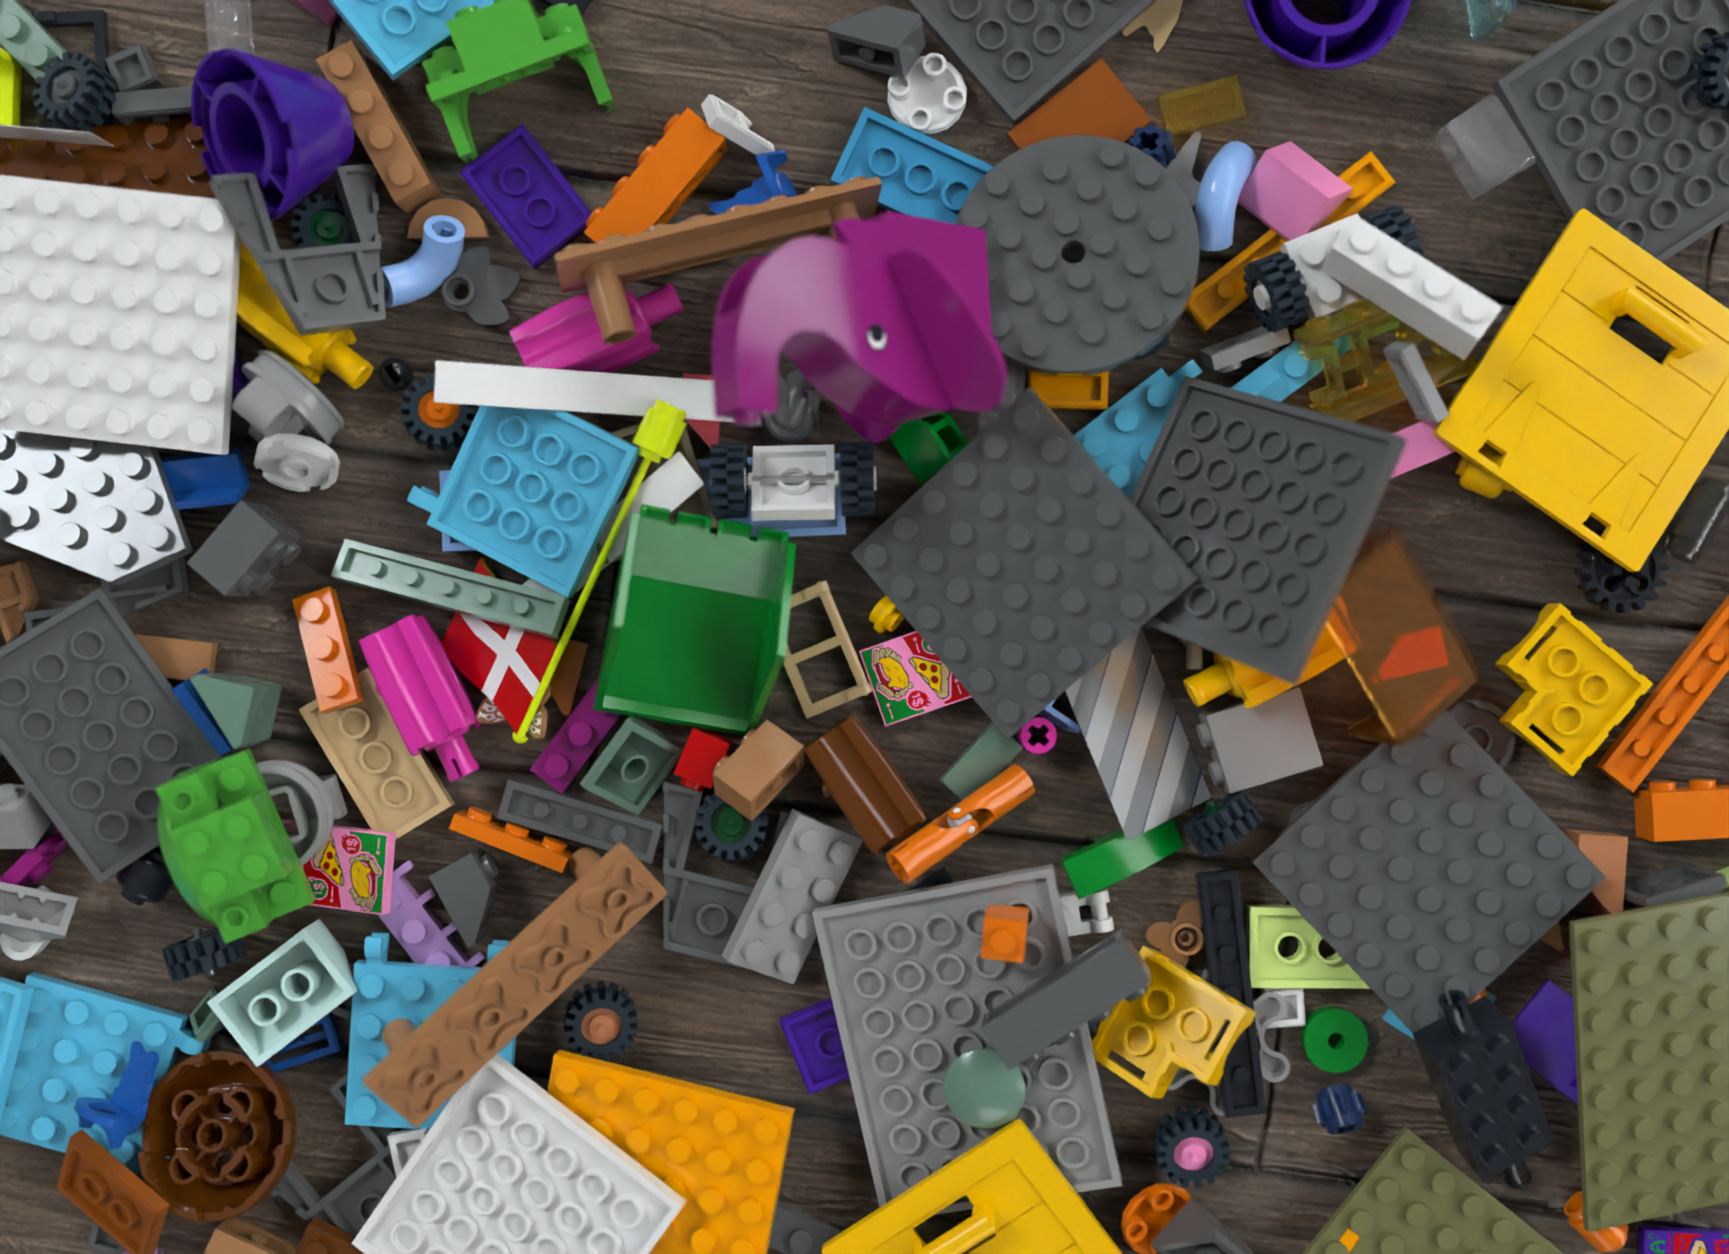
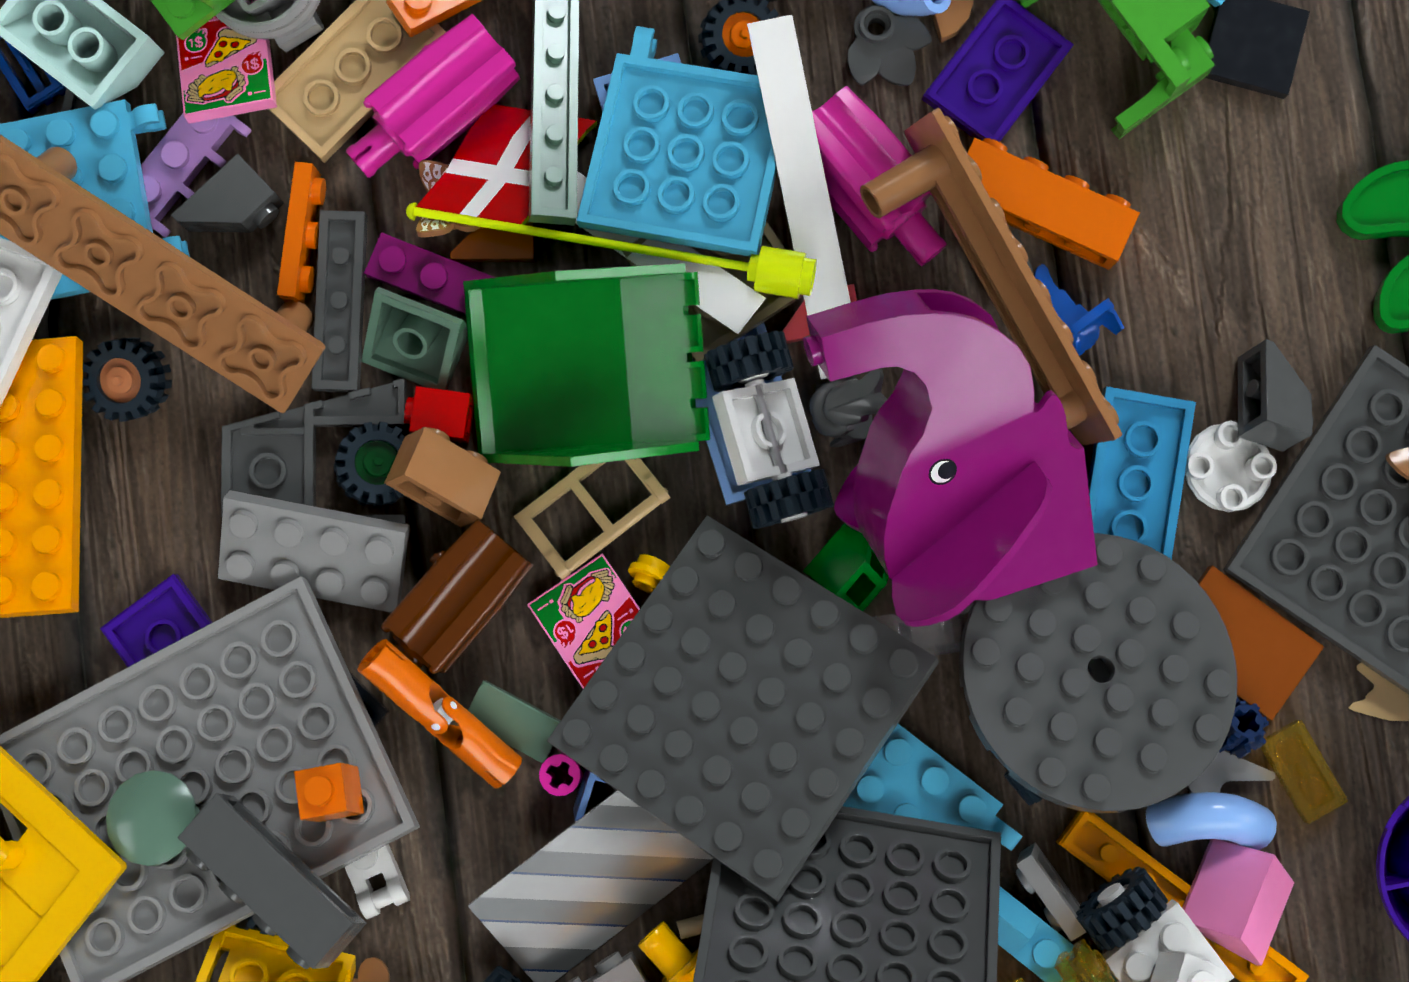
camera: 80 degrees right, 5 degrees down
(733, 125) = (1135, 267): white tile -> none
(1071, 390) = (950, 710): light orange tile -> none
(1115, 858) = (444, 899): green slope -> none

